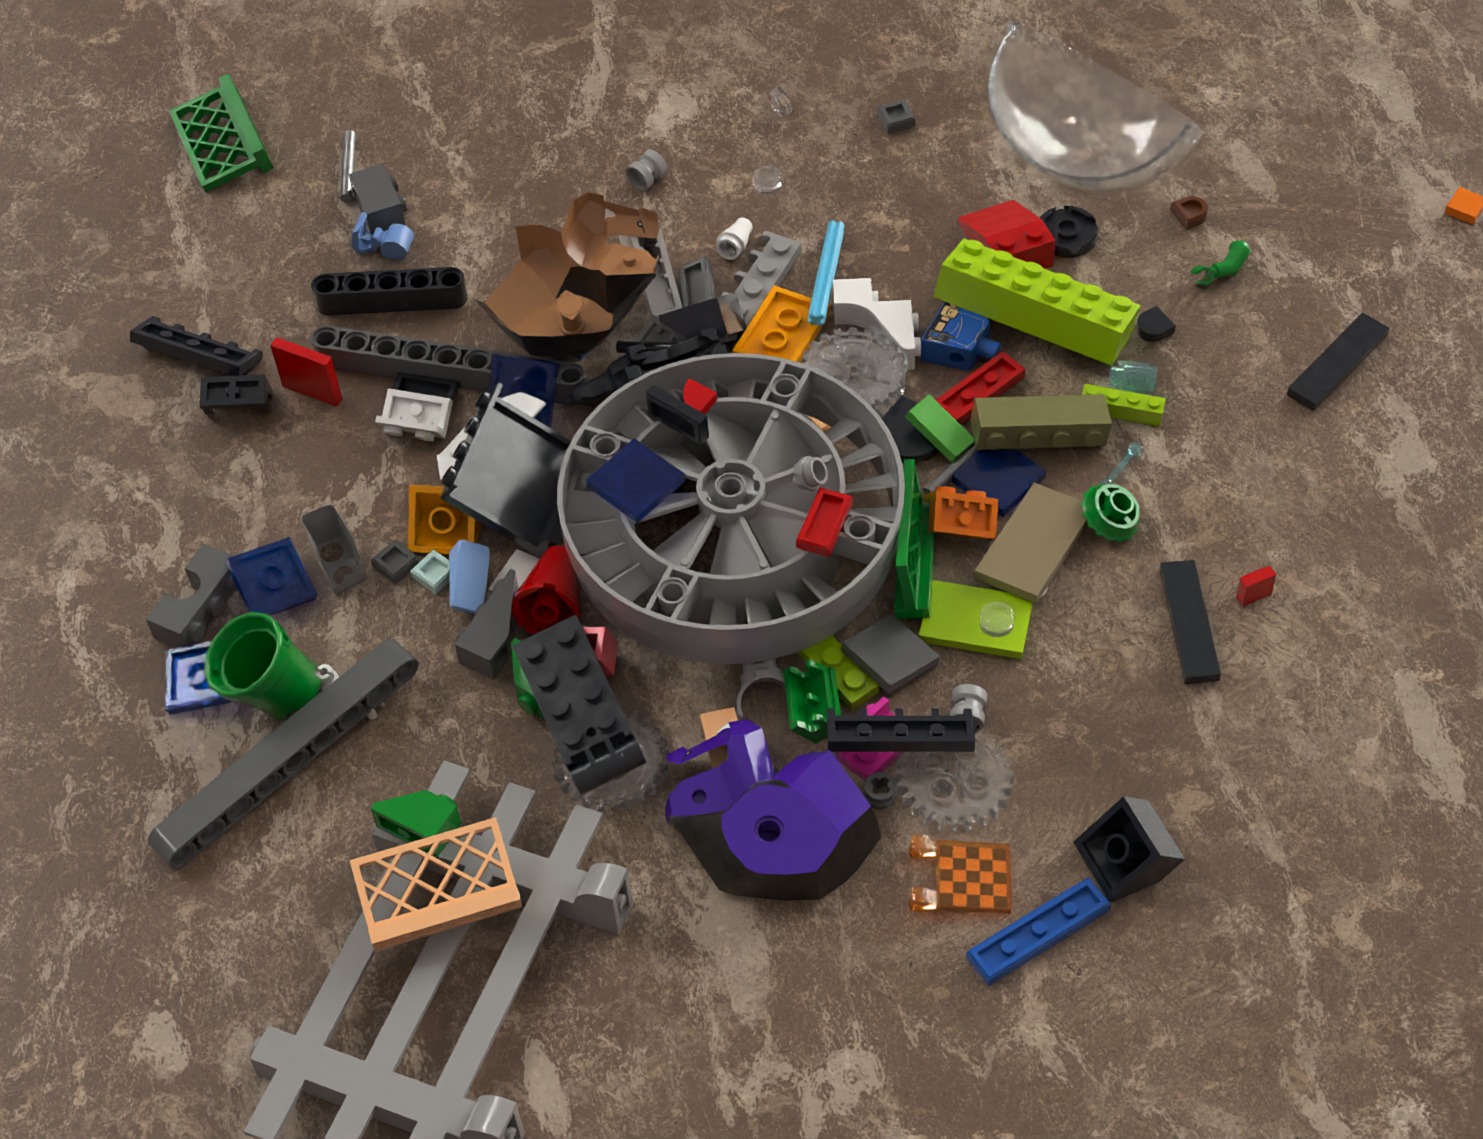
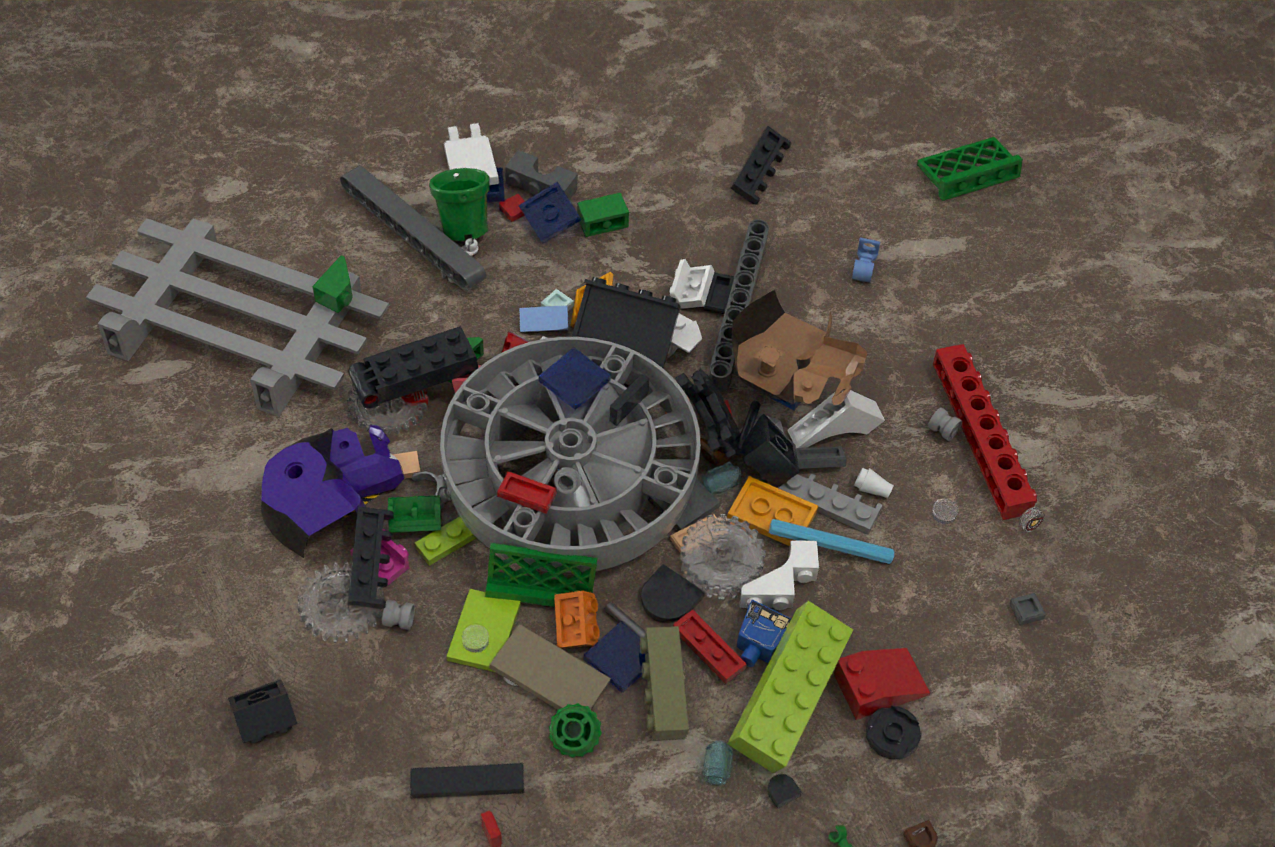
camera: 85 degrees right, 0 degrees up
(146, 689) = (470, 152): none -> white tile
(235, 392) = (711, 186): black hinge -> none
(274, 515) = (603, 214): none -> green brick
(306, 371) = (725, 218): red tile -> none
(326, 527) = (577, 237): light grey piece -> none
(347, 165) = (944, 241): flat silver bar -> none
(377, 197) = (905, 256): dark grey brick -> none
(389, 291) = (812, 268): black beam -> none
(395, 561) = (567, 282): dark grey tile -> none
(440, 916) = (262, 297): light nougat fence -> none
(488, 638) = (494, 329): dark grey slope -> none
(526, 376) = (713, 341): clear blue tile -> none
(666, 132) = (984, 431): none -> red brick
(699, 396) = (649, 416): red tile -> none
(878, 780) = (340, 551): dark grey bush -> none
(890, 653) = (454, 568): dark grey tile -> none
(940, 428) = (664, 608): bright green tile -> none
(967, 875) = (263, 610): clear orange flag -> none
(1038, 931) = (212, 650): blue tile -> none
(1082, 118) = (1002, 733): clear windscreen -> none
(1130, 405) = (691, 754): lime piece -> none
(1134, 449) = (647, 760): clear light blue hinge -> none

